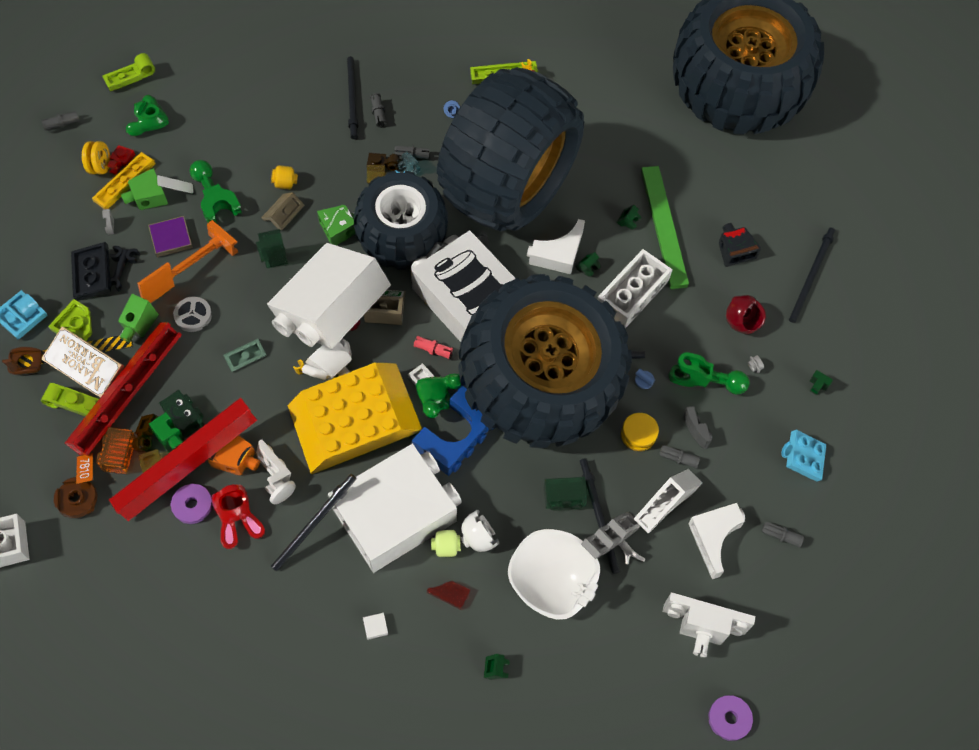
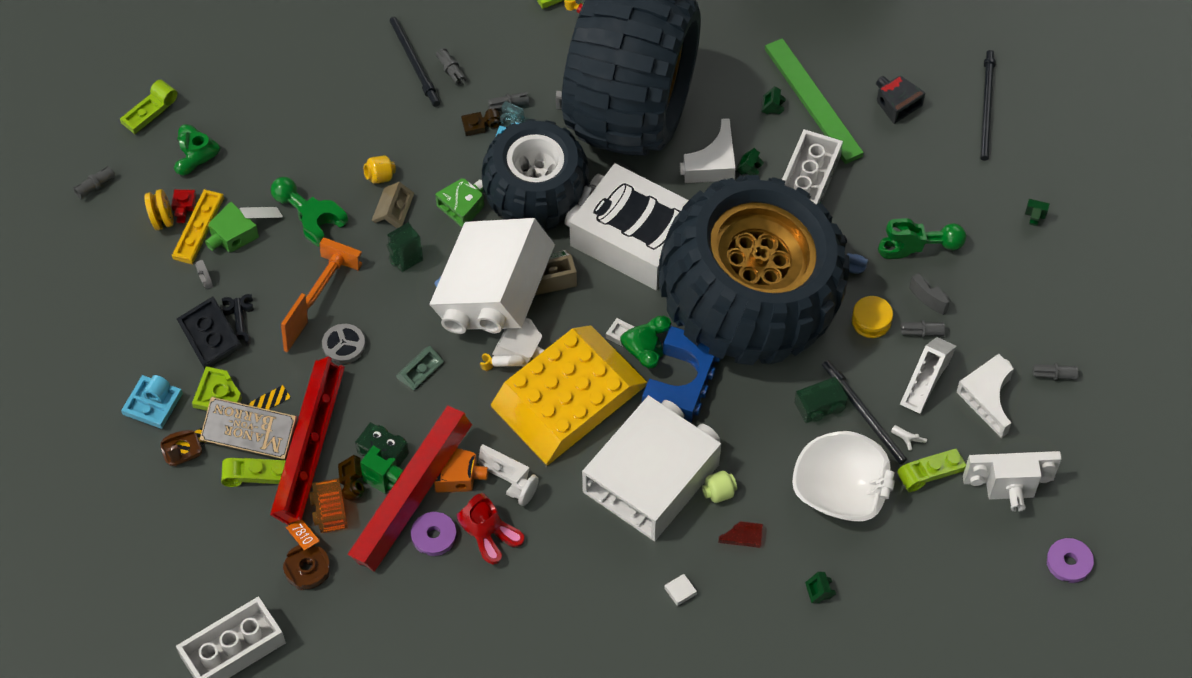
camera: 15 degrees left, 5 degrees down
(136, 318) = (288, 363): bright green torso -> none
(149, 459) = (368, 505): clear yellow tile -> none
(170, 236) = (279, 270): dark purple tile -> none
(338, 493) = (596, 464): black bar -> none
(374, 171) = (479, 136): clear yellow tile -> none
(433, 347) = (620, 298): coral pin -> none
(451, 108) = (532, 41): medium blue plate -> none
(478, 533) = (749, 466): white cylinder -> none
(611, 535) = (886, 423): light grey slope -> none
(637, 588) = (930, 468): none -> lime plate
(745, 314) = (935, 165): dark red piece -> none
(755, 364) = (964, 213): light grey plate -> none
(805, 455) = (1048, 287): medium azure plate -> none

